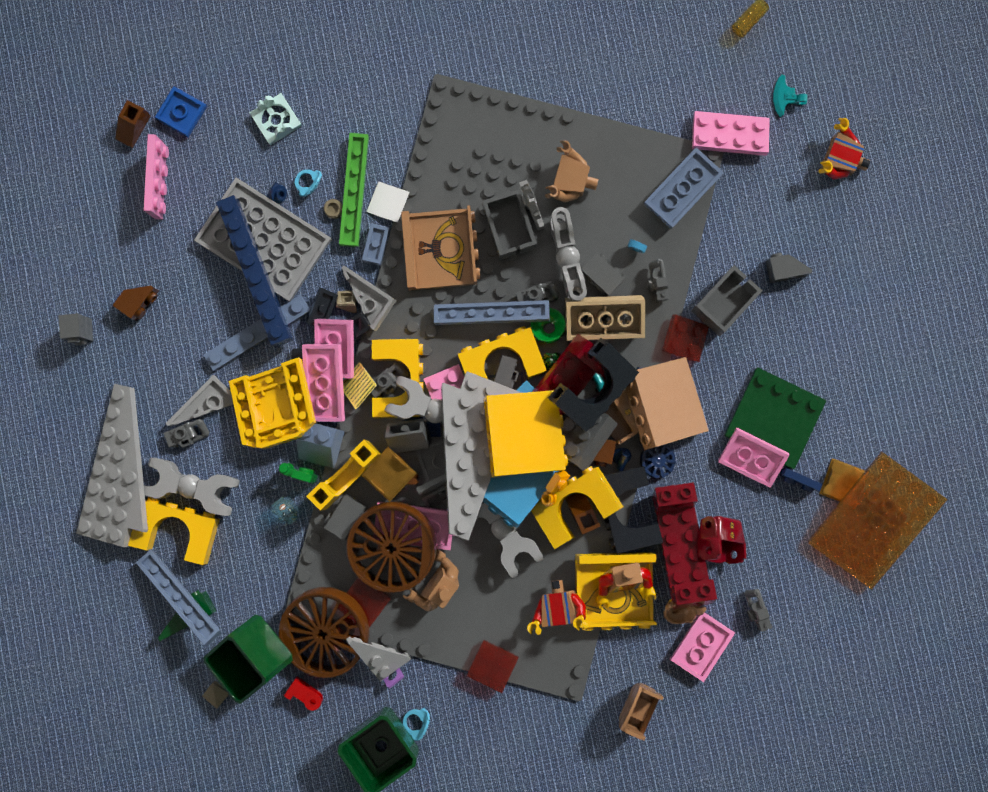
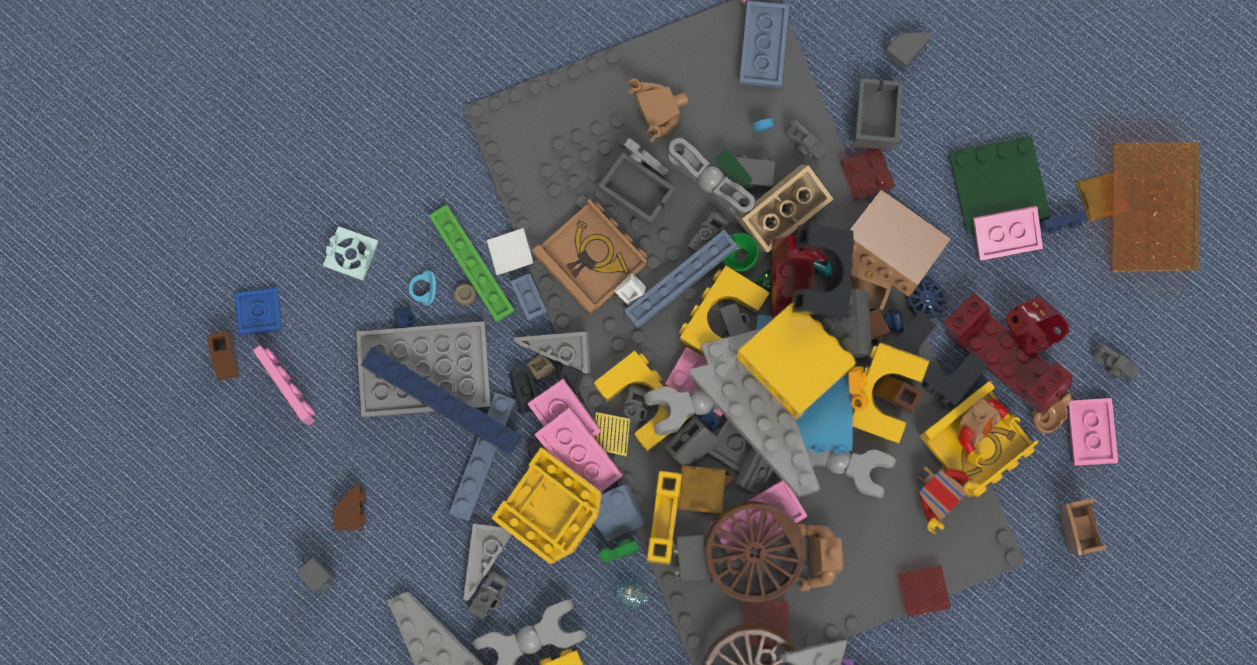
camera: 35 degrees left, 5 degrees down
(451, 293) = (630, 289): none -> white slope
(590, 261) = (733, 168): none -> dark green sticker

